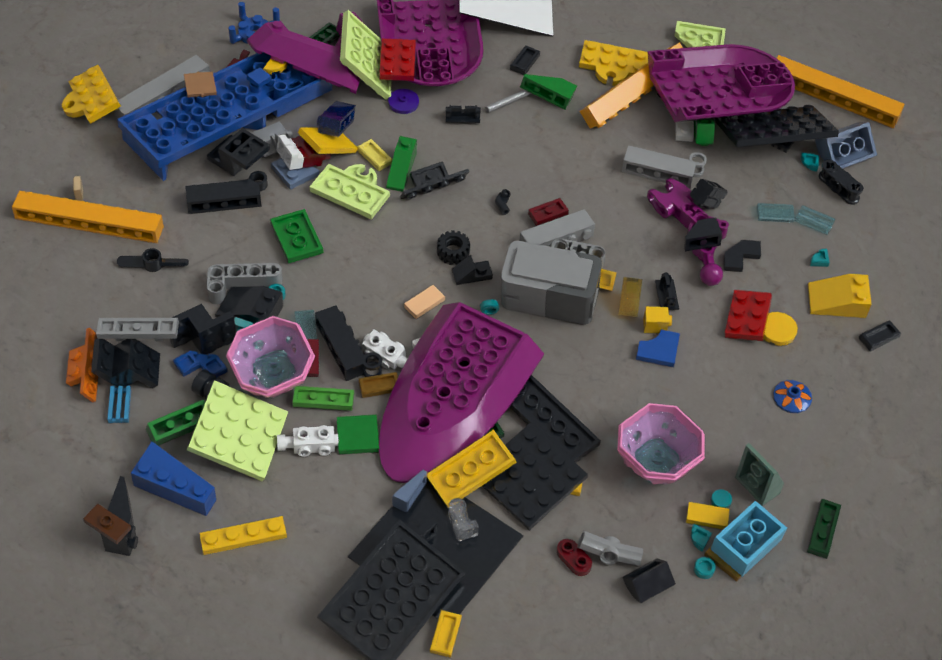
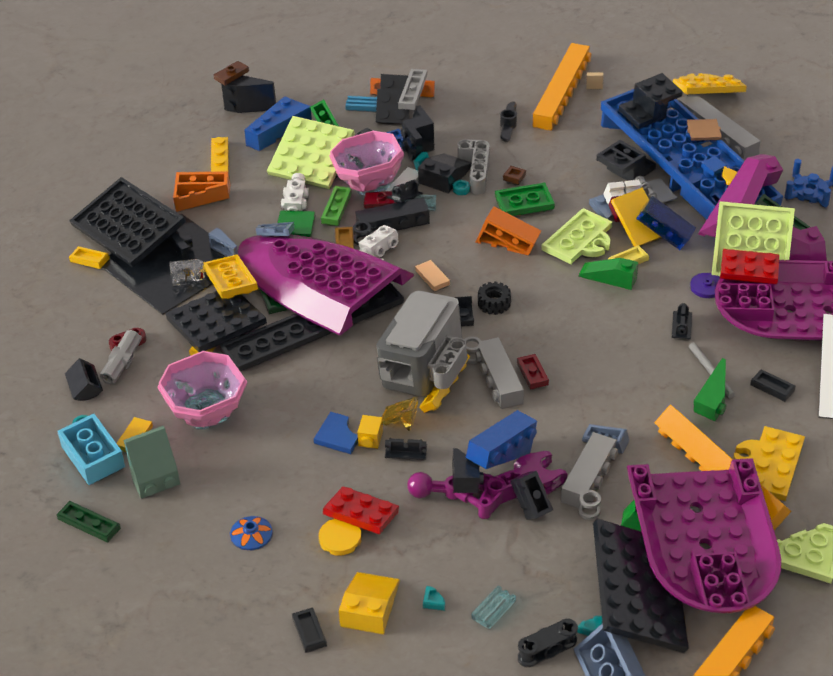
camera: 105 degrees right, 10 degrees down
(171, 114) = (650, 100): none -> black bracket
(226, 195) = (580, 161): black hinge -> none
(255, 247) = (514, 175): none -> reddish brown plate
(312, 331) = (405, 191): none -> black hinge
(316, 536) = (200, 188): none -> orange wedge
(358, 241) = (508, 232): none -> orange wedge
(386, 438) = (275, 229): none -> sand blue wing
(431, 177) = (588, 290): black bracket -> none
(501, 201) = (553, 340): black arm -> none
(618, 149) = (616, 433): none -> sand blue slope
(663, 207) = (503, 441): none -> blue wedge
(700, 537) = (115, 427): teal tile -> none
(744, 249) = (448, 517): black tile -> none
(775, 212) = (511, 571): clear light blue tile -> none

